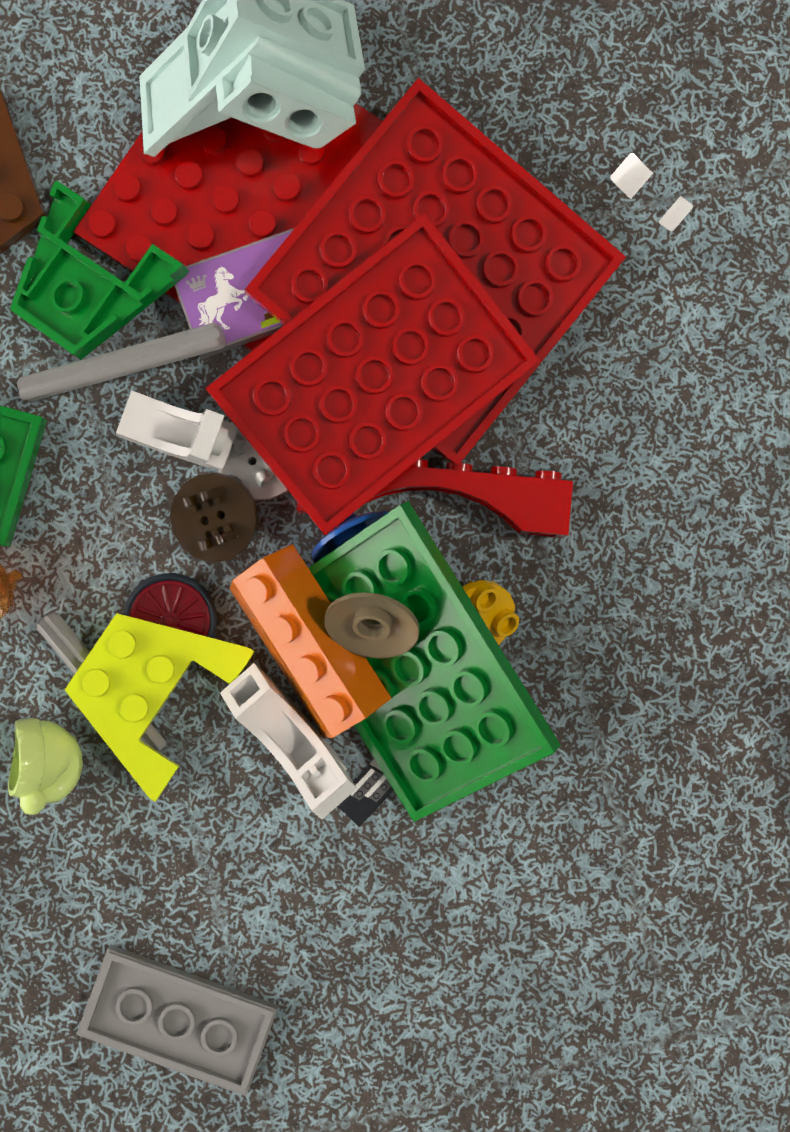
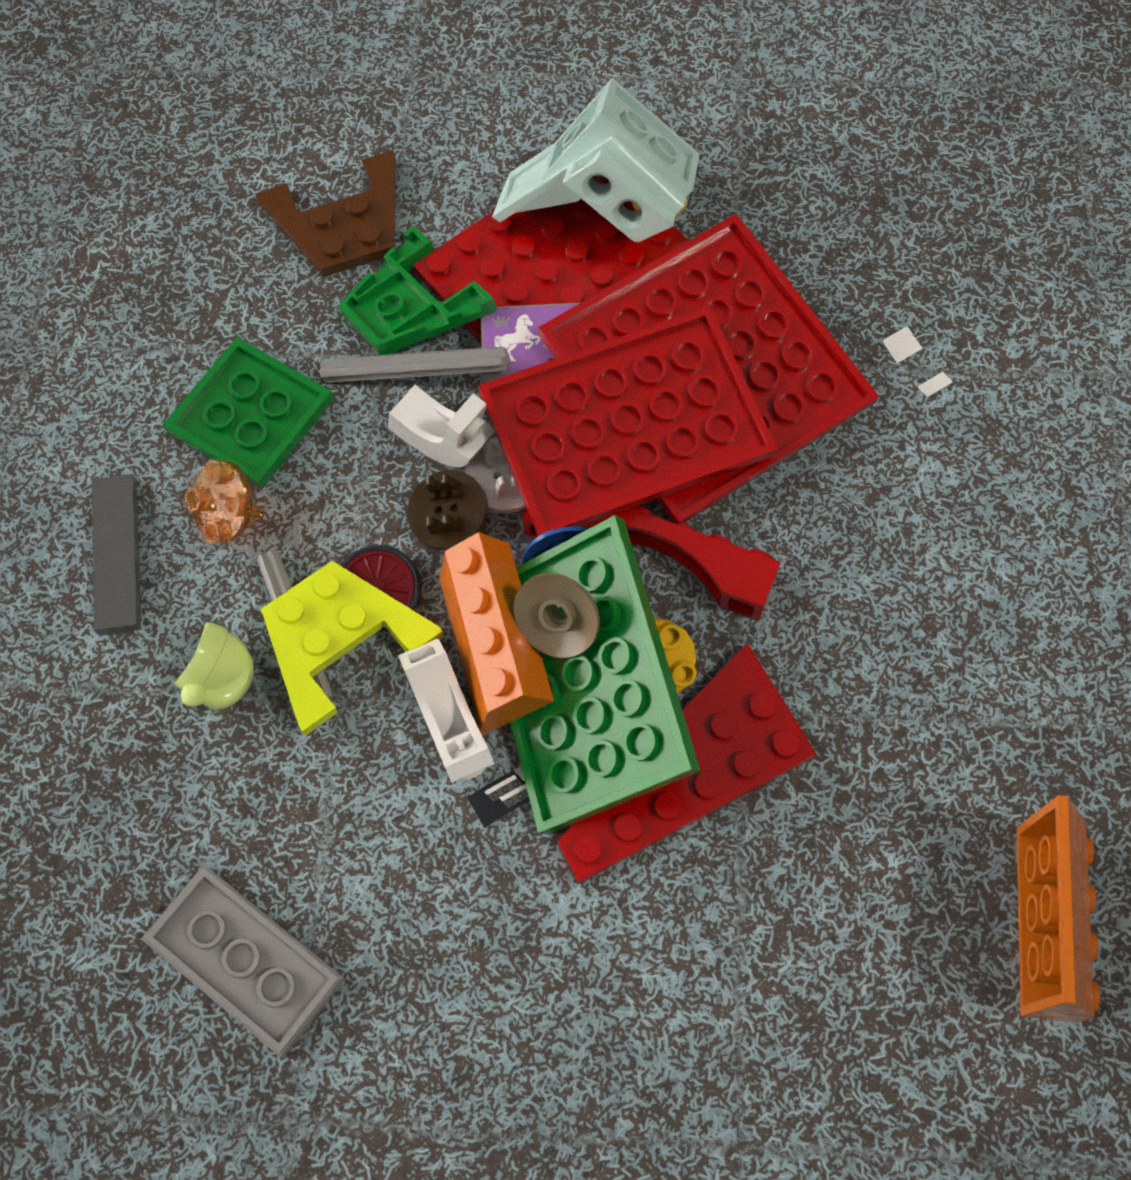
camera: 20 degrees right, 20 degrees down
(575, 672) = (740, 742): none -> red wing

